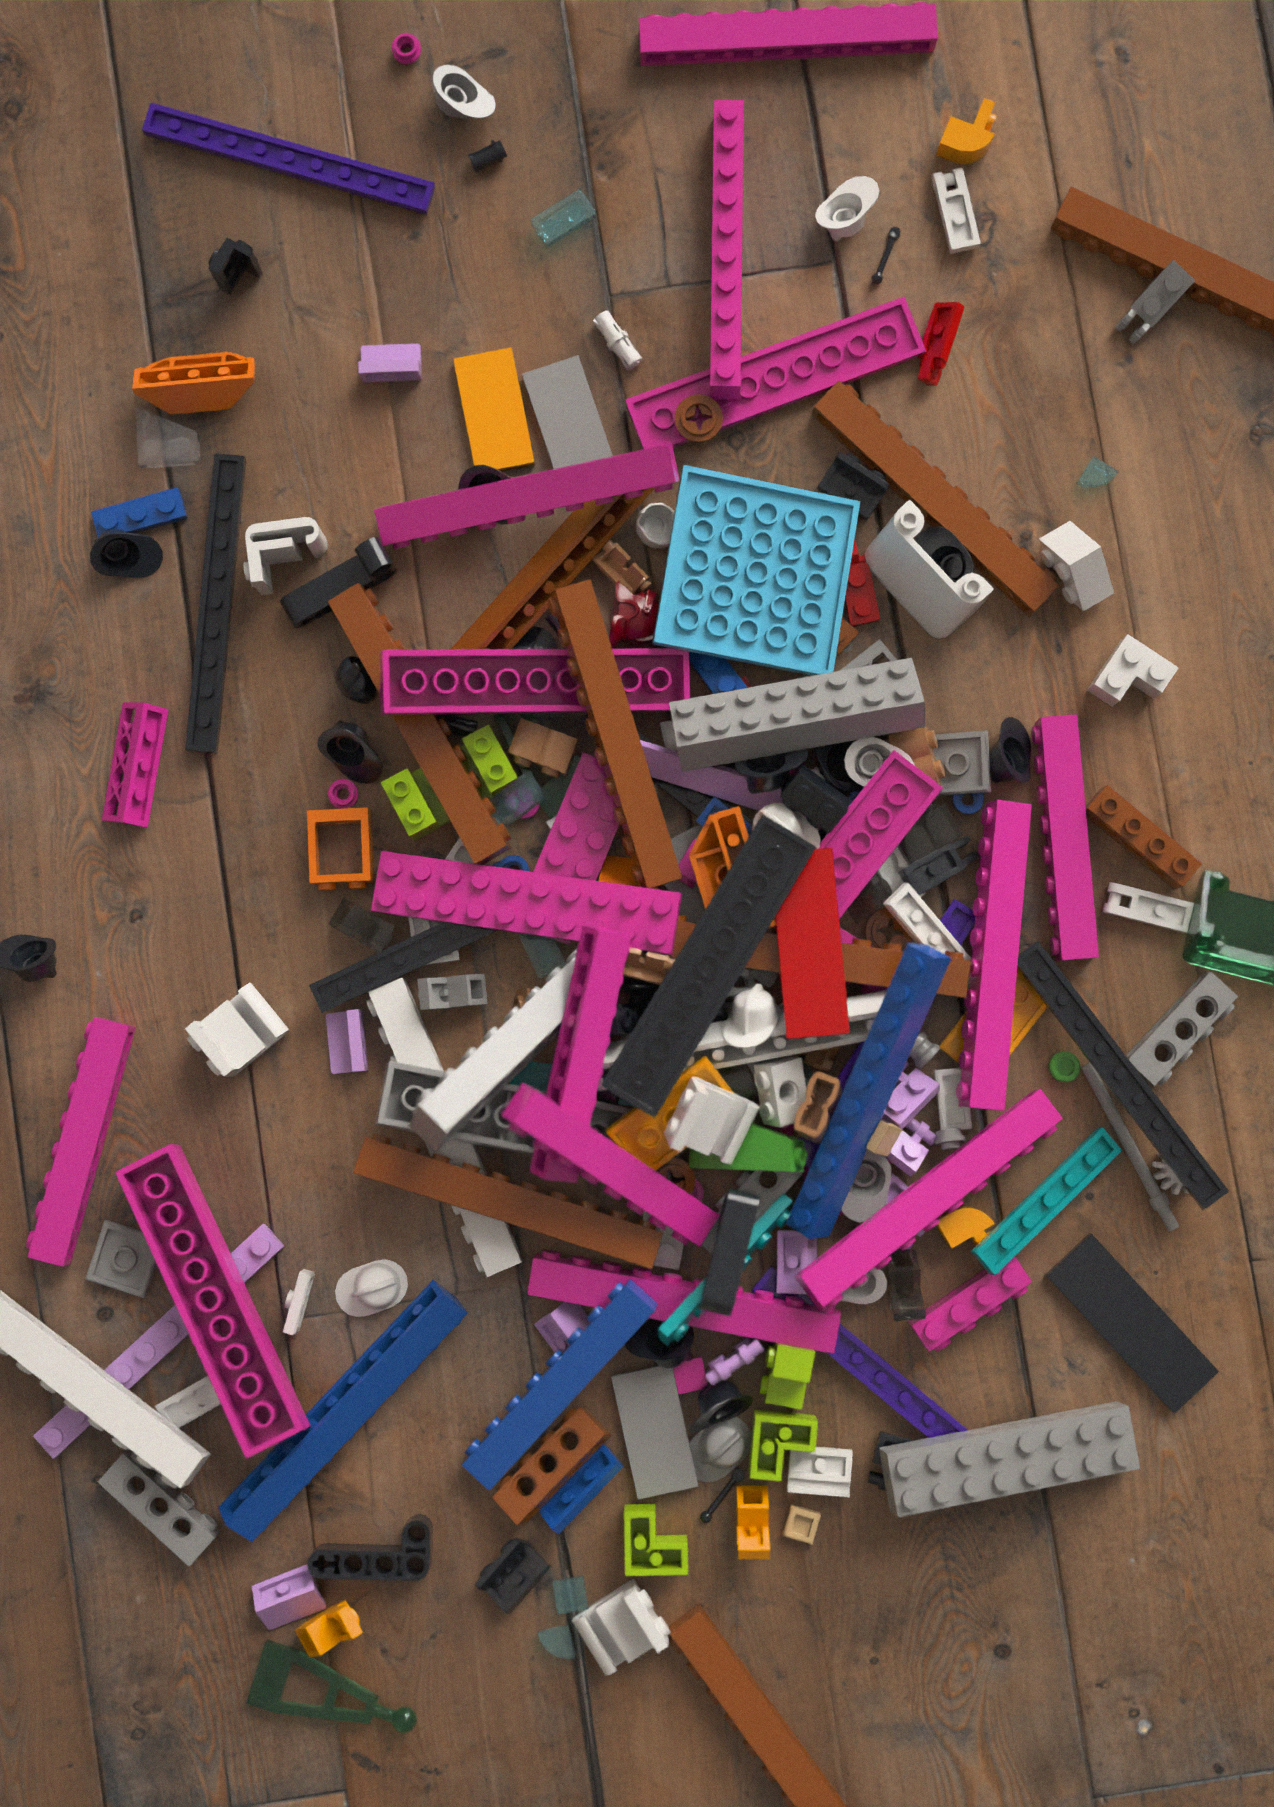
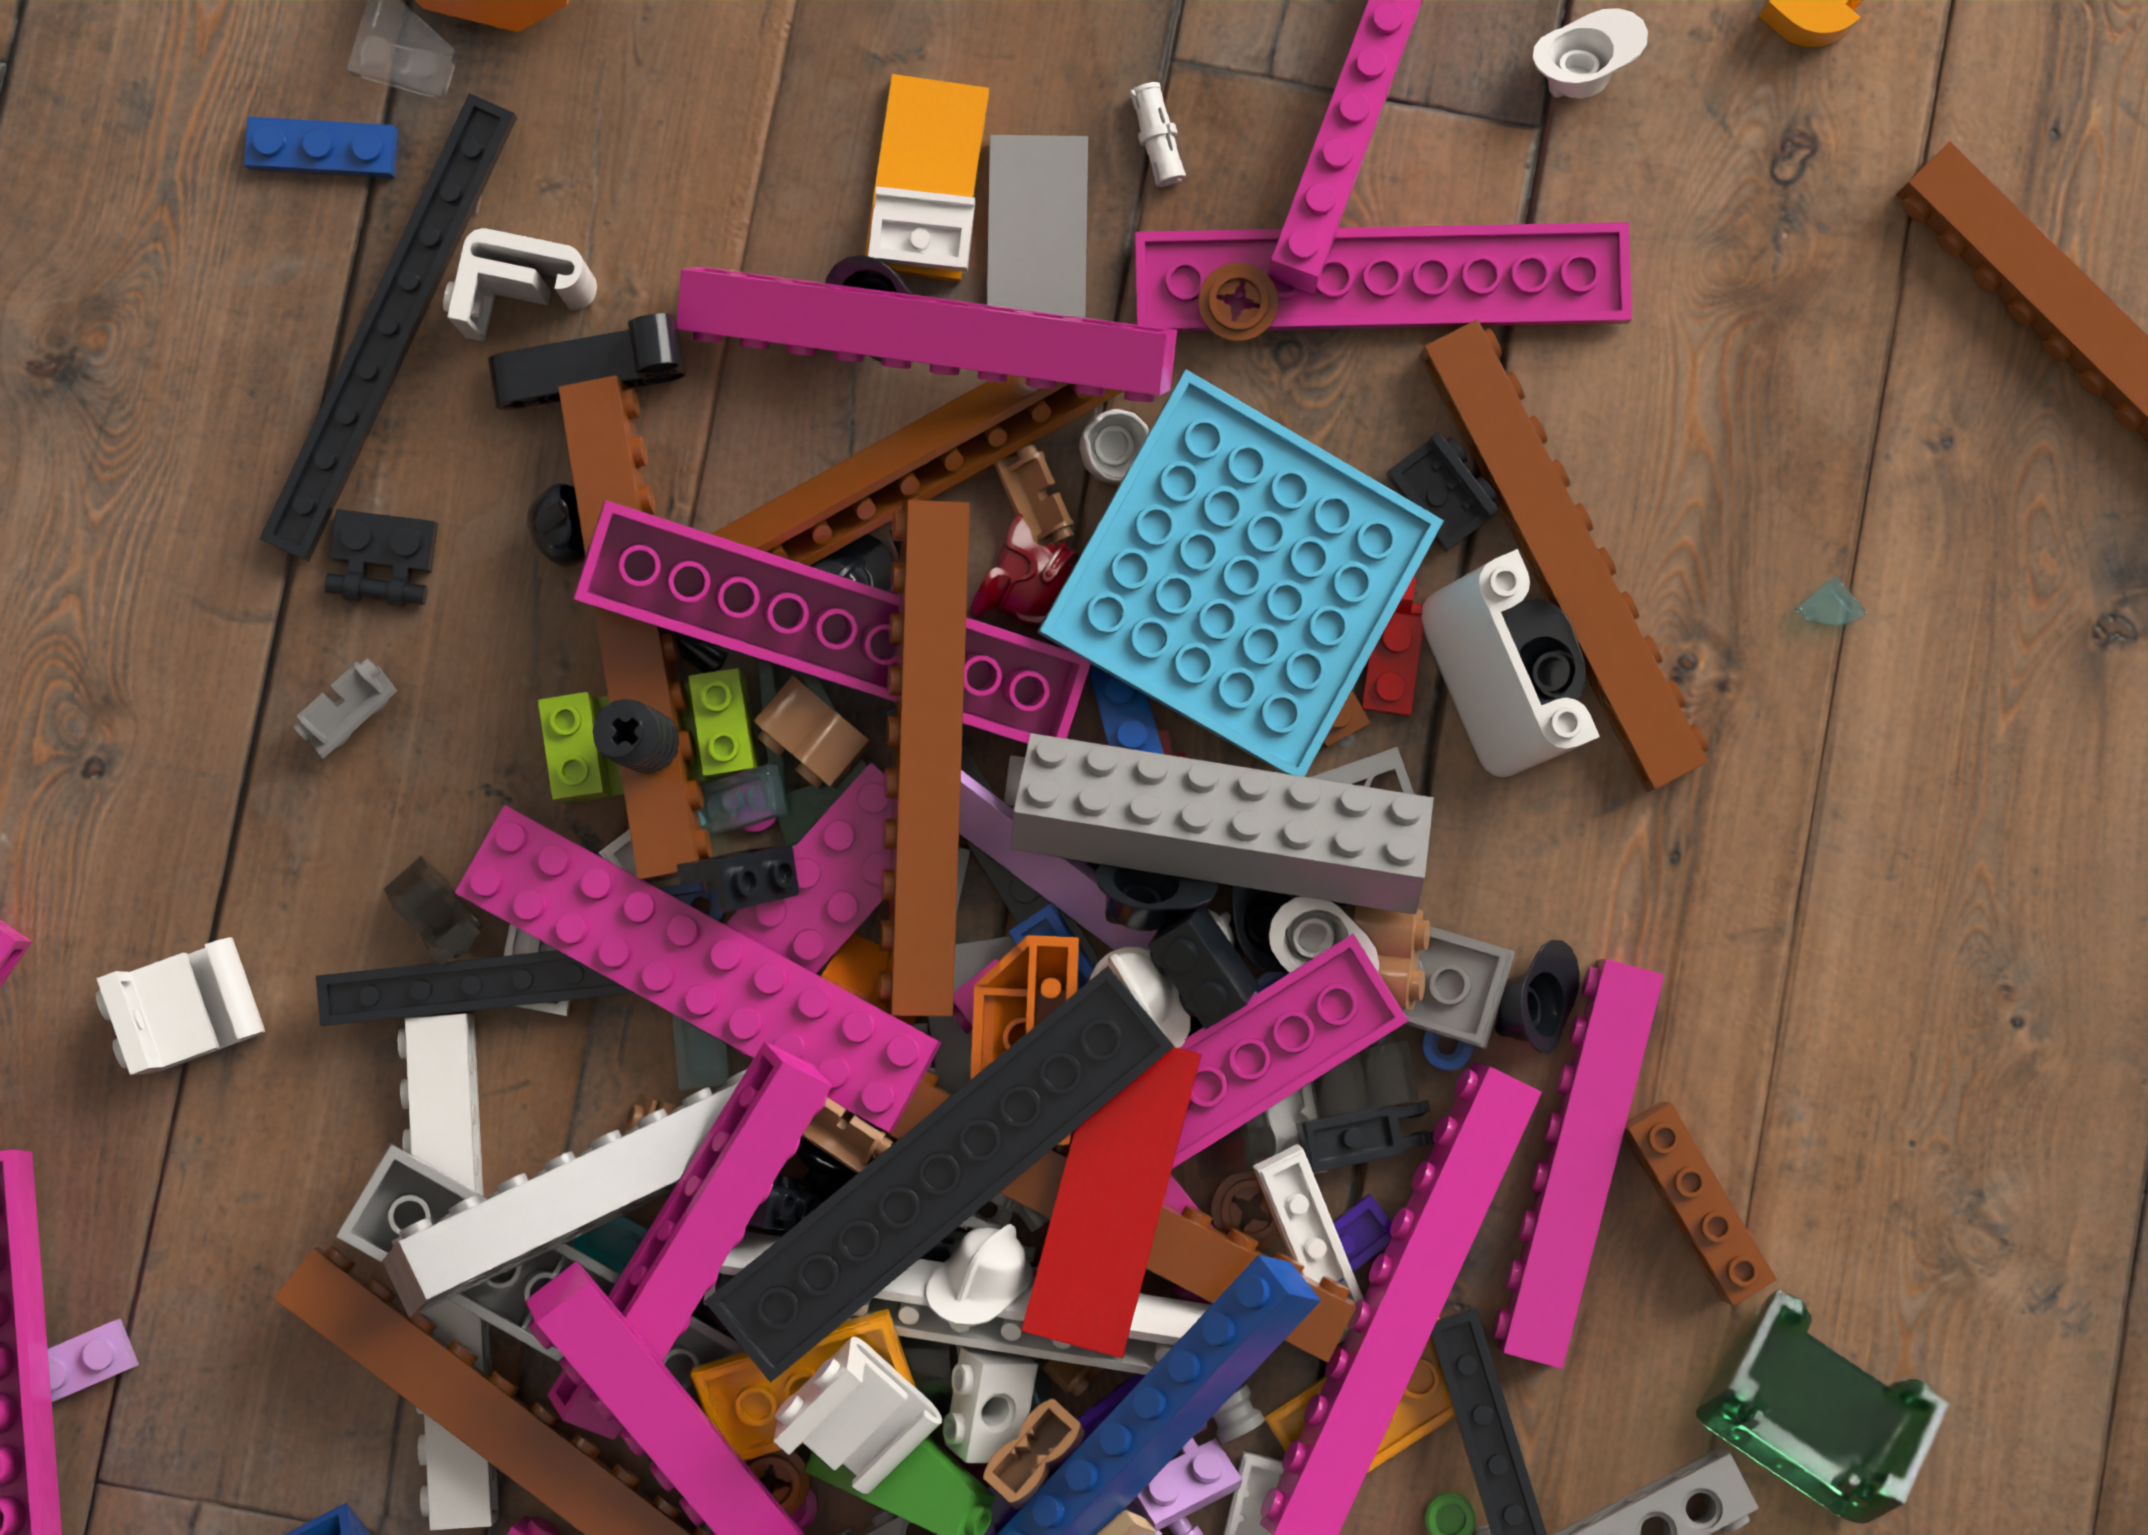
camera: 15 degrees right, 0 degrees up
(125, 554) = (274, 202): black piece -> none
(139, 764) = (178, 536): dark pink fence -> none
(258, 727) = (383, 542): none -> black plate
(264, 841) = (362, 691): none -> light grey hinge
(297, 1301) = (125, 1461): white plate -> none
(336, 817) = (499, 746): orange window -> none
(339, 785) = (466, 685): dark pink plate -> none
(347, 1041) = (348, 1082): lavender panel -> none
(350, 752) = (512, 629): black piece -> none
(371, 1288) = (249, 1479): white piece -> none
(390, 363) = (793, 46): lavender panel -> none
(434, 778) = (636, 736): none -> black piece
(452, 992) = (535, 1063): light grey brick -> none
(503, 439) = (922, 229): none -> white plate
(536, 840) = (745, 876): none -> black bracket
(894, 234) = (1648, 118): black hinge -> none
(939, 340) = (1658, 310): red hinge -> none
(956, 211) = (1757, 116): white plate -> none
(1078, 564) = (1748, 739): white brick -> none
(1135, 665) = (1776, 924): white brick -> none
(1149, 908) = (1671, 1317): white plate -> none
(1157, 299) = (2023, 365): light grey hinge -> none

